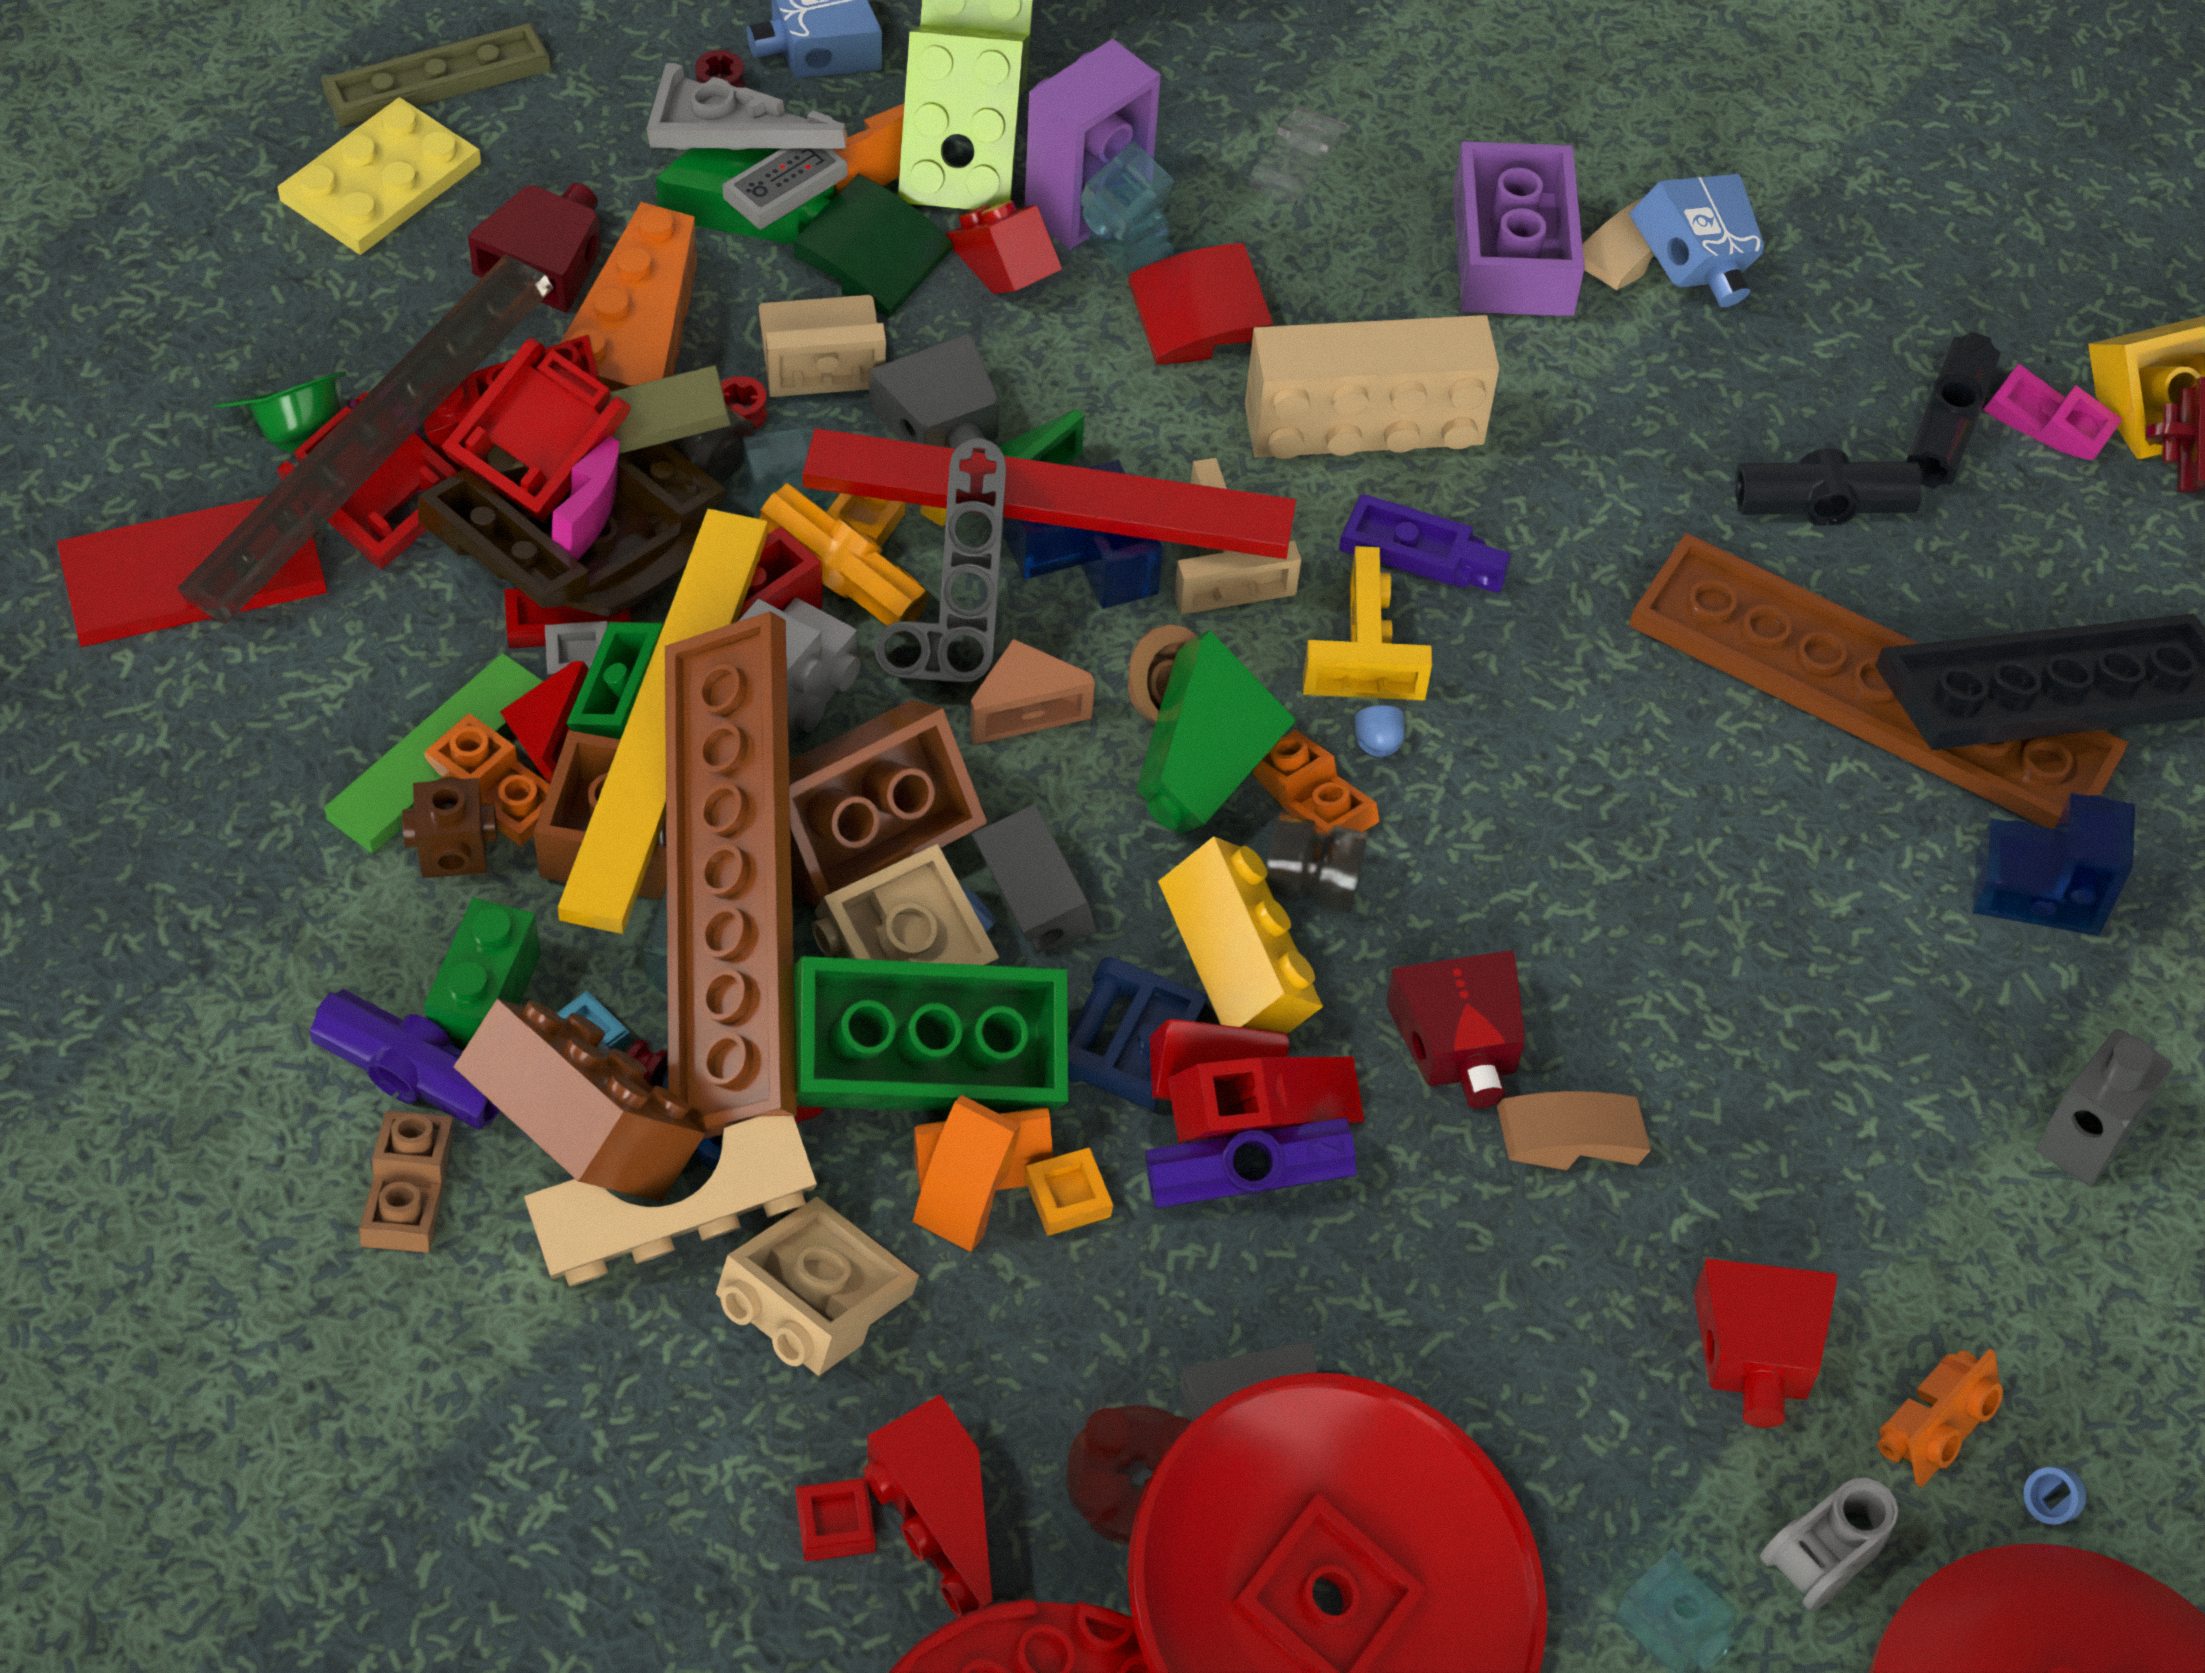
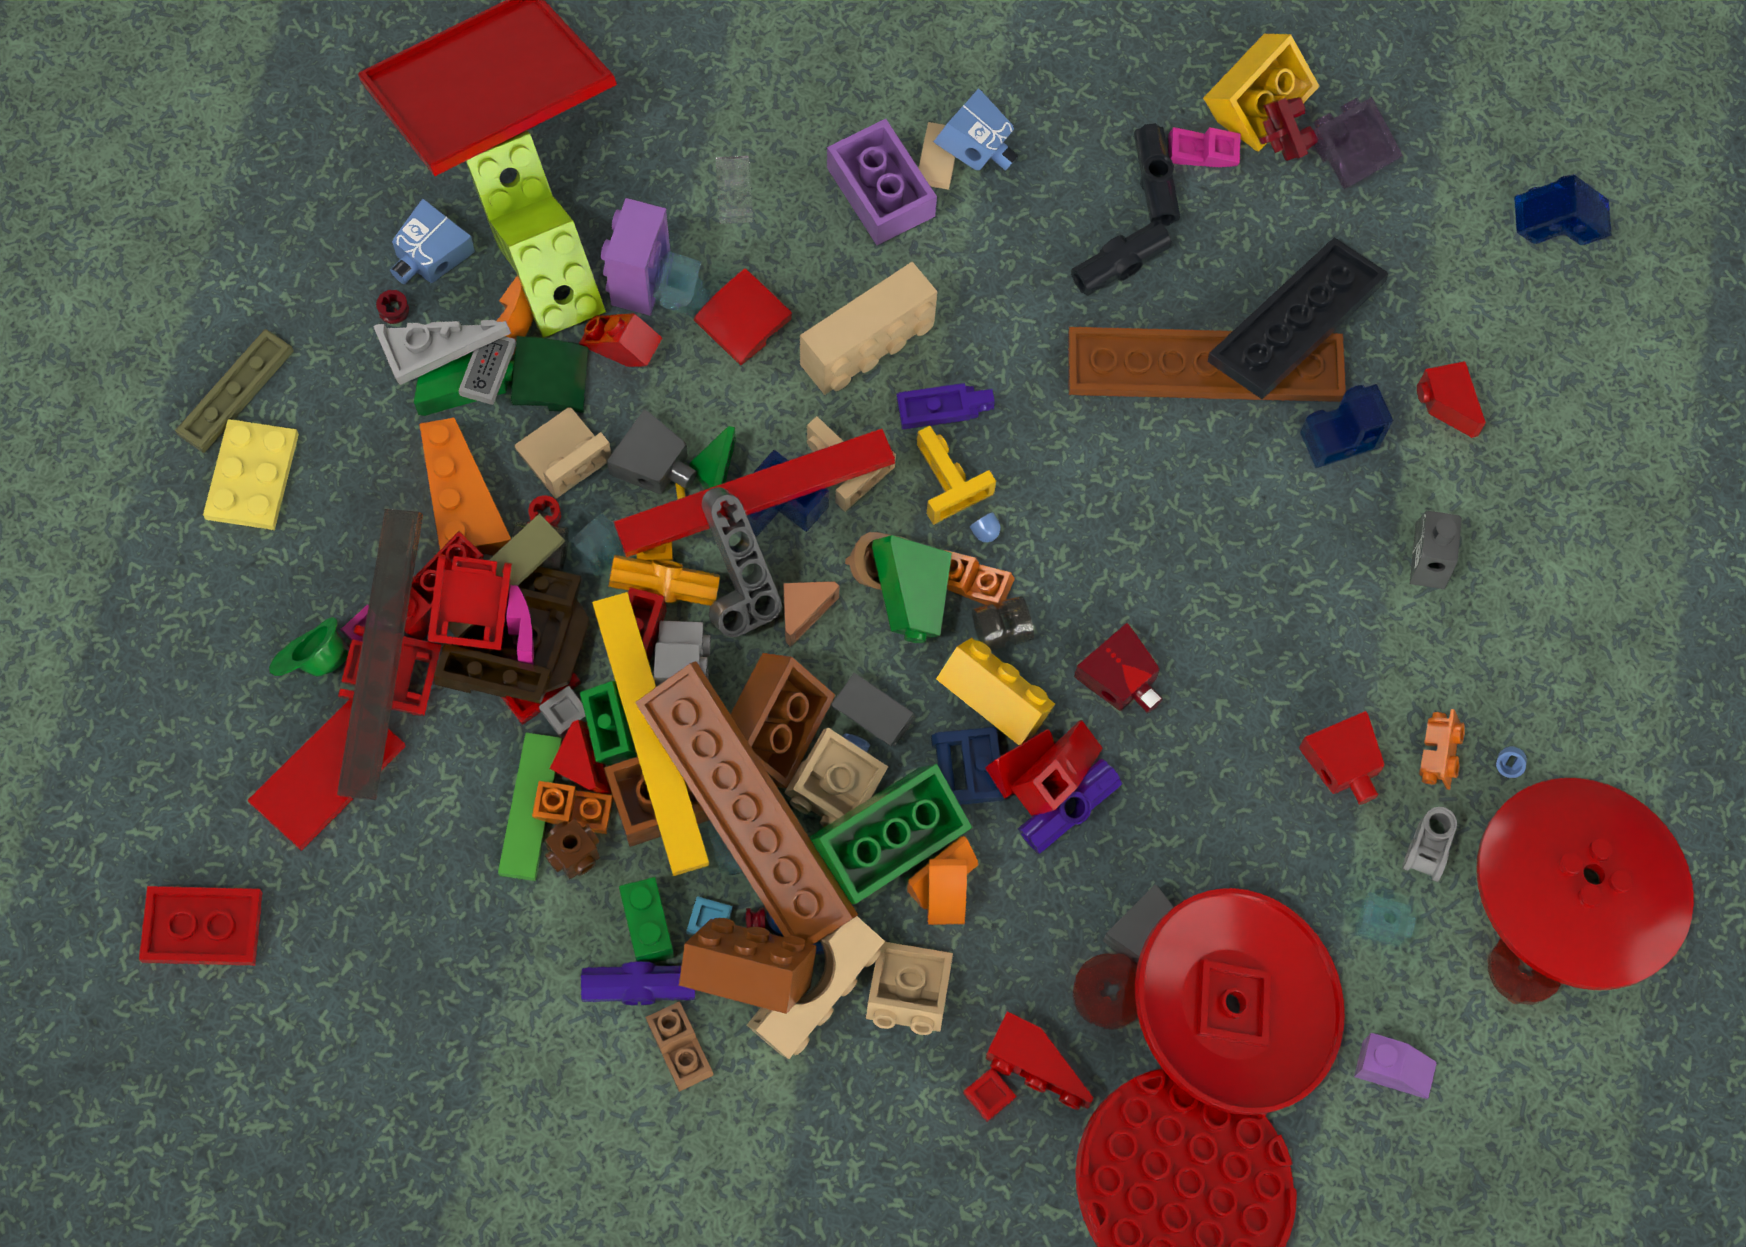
camera: 30 degrees left, 15 degrees up
(545, 233) = (374, 472): dark red torso -> none
(1068, 1191) = (993, 868): light orange plate -> none
(1561, 1126) = (1202, 697): medium nougat slope -> none

